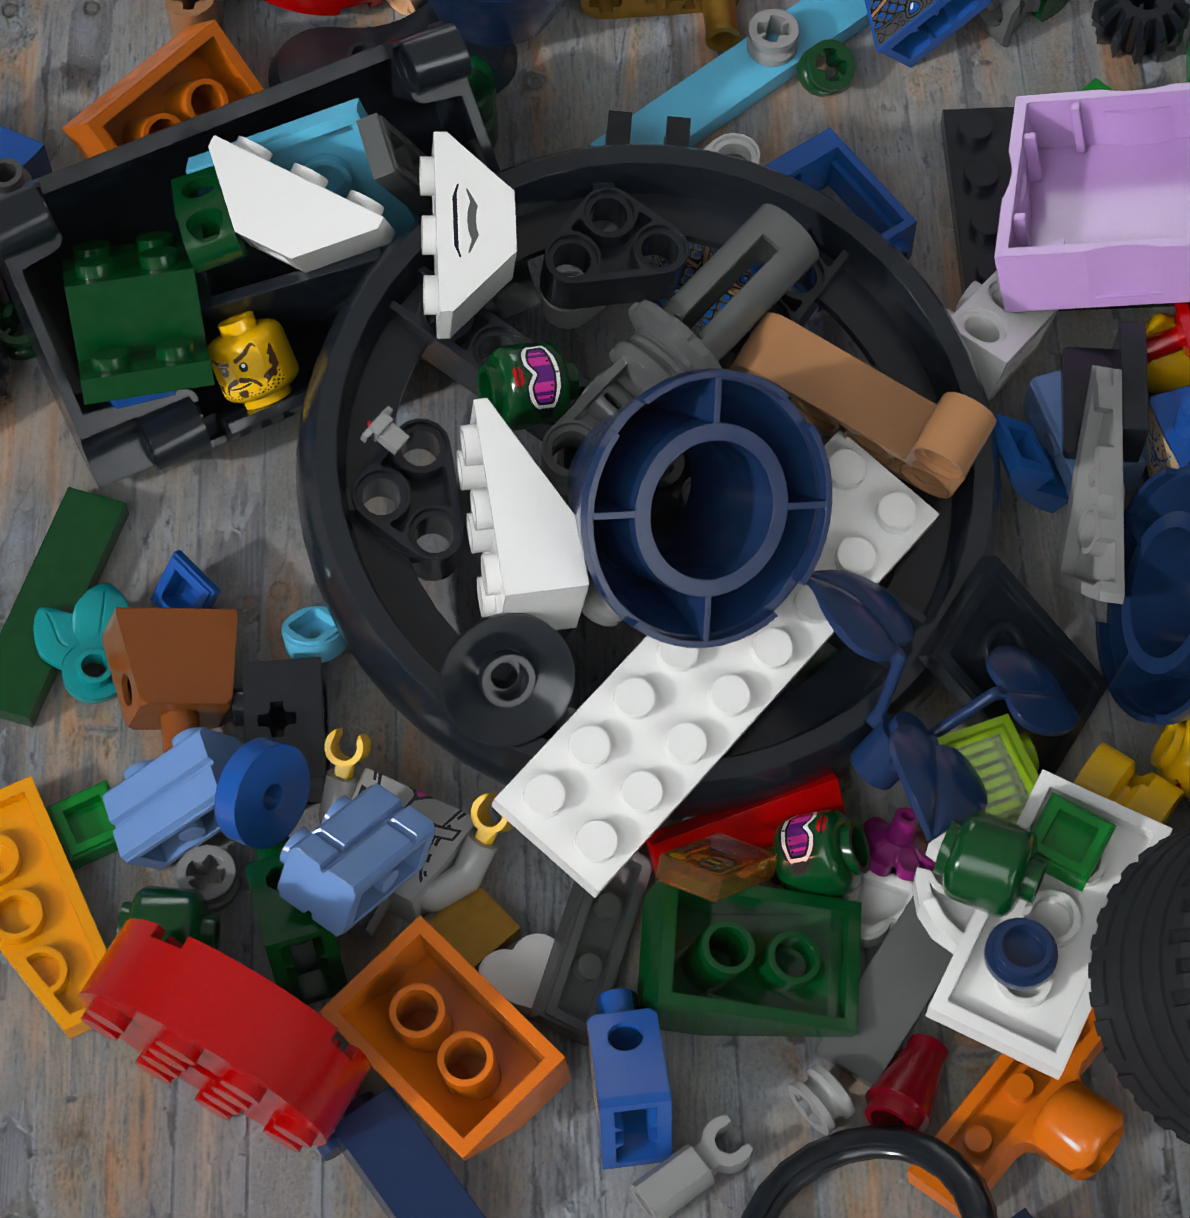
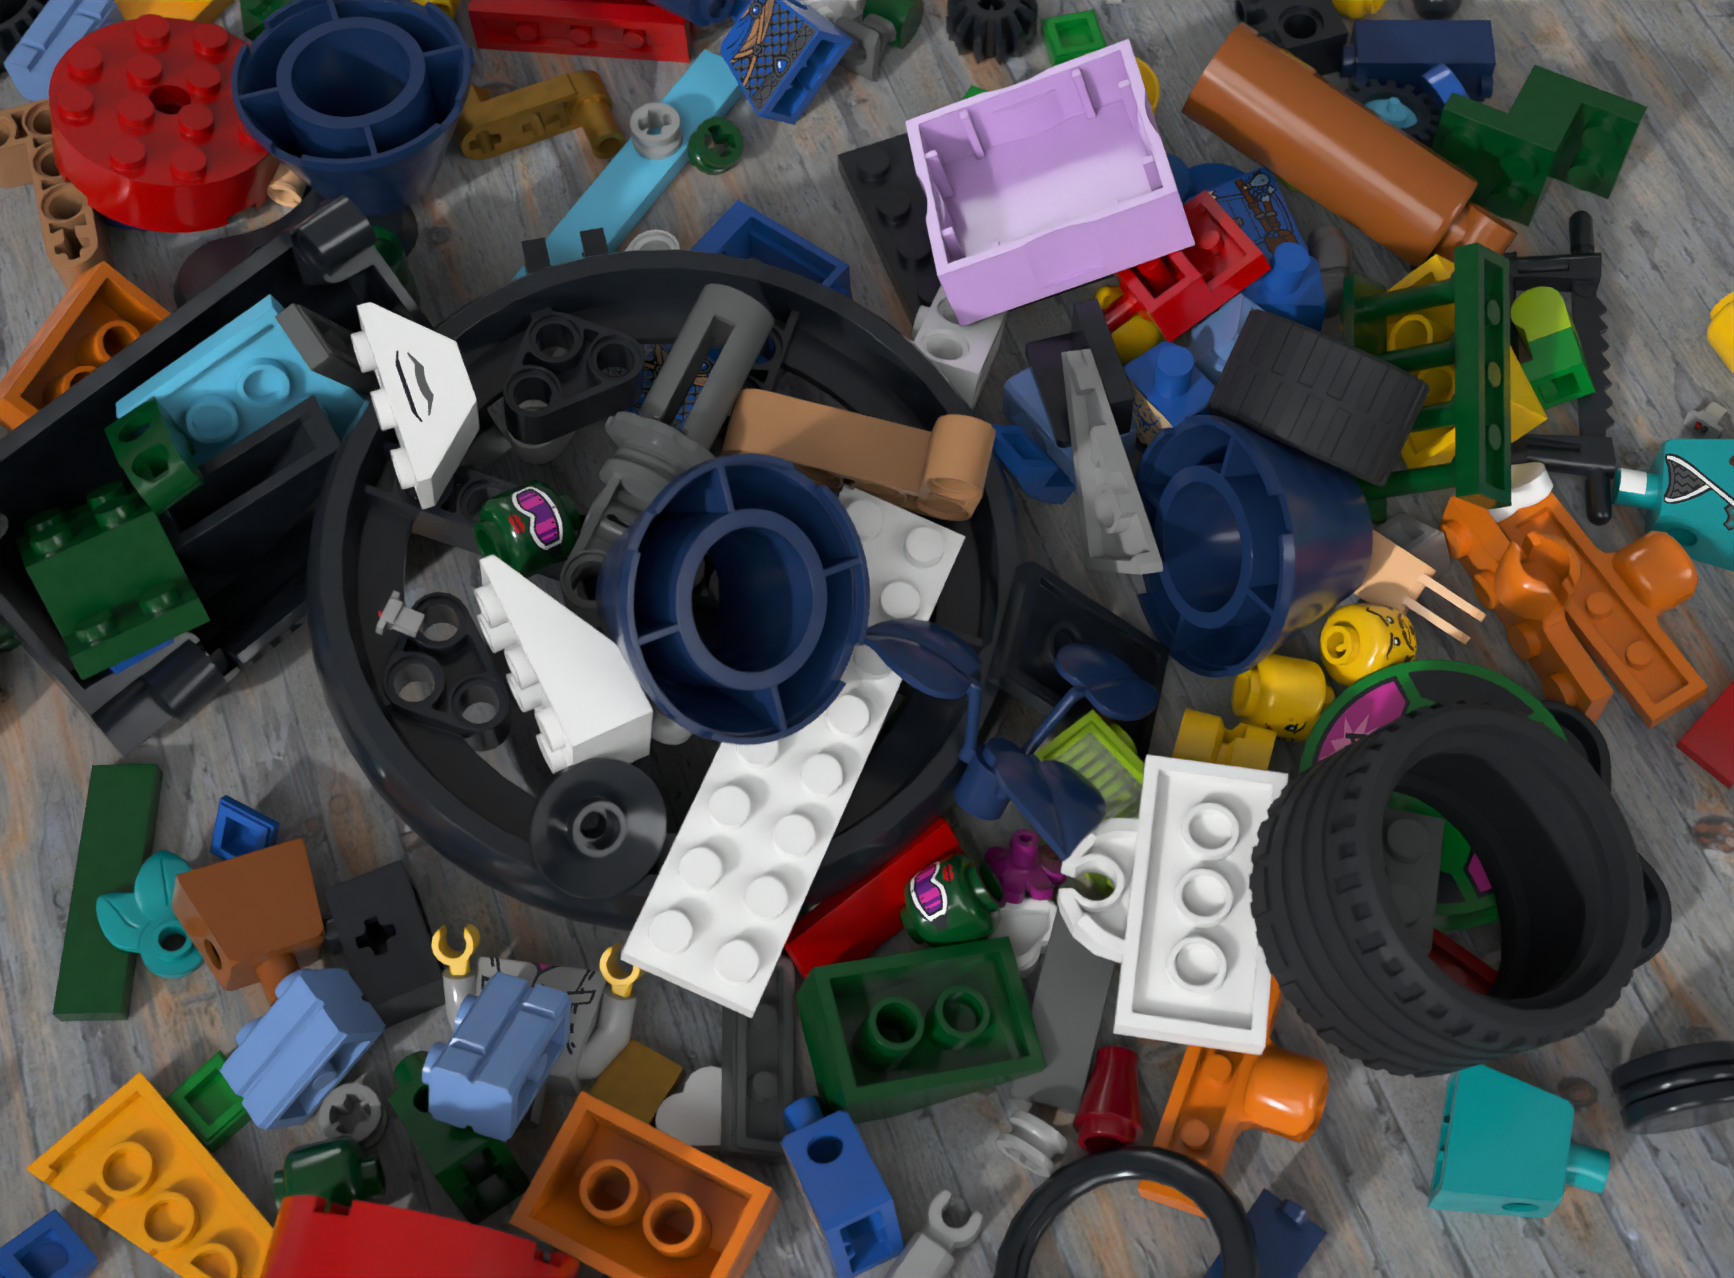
camera: 15 degrees left, 0 degrees up
(253, 360) = (242, 584): yellow head -> none
(262, 793) = (383, 1017): blue piece -> none
(292, 211) = (238, 425): white slope -> none
(312, 634) = (385, 839): medium azure tile -> none
(715, 866) = (859, 948): clear orange tile -> none
(989, 863) = (1130, 864): dark green head -> none
(1020, 953) = (1187, 943): dark blue plate -> none
(1071, 840) = (1194, 818): green tile -> none

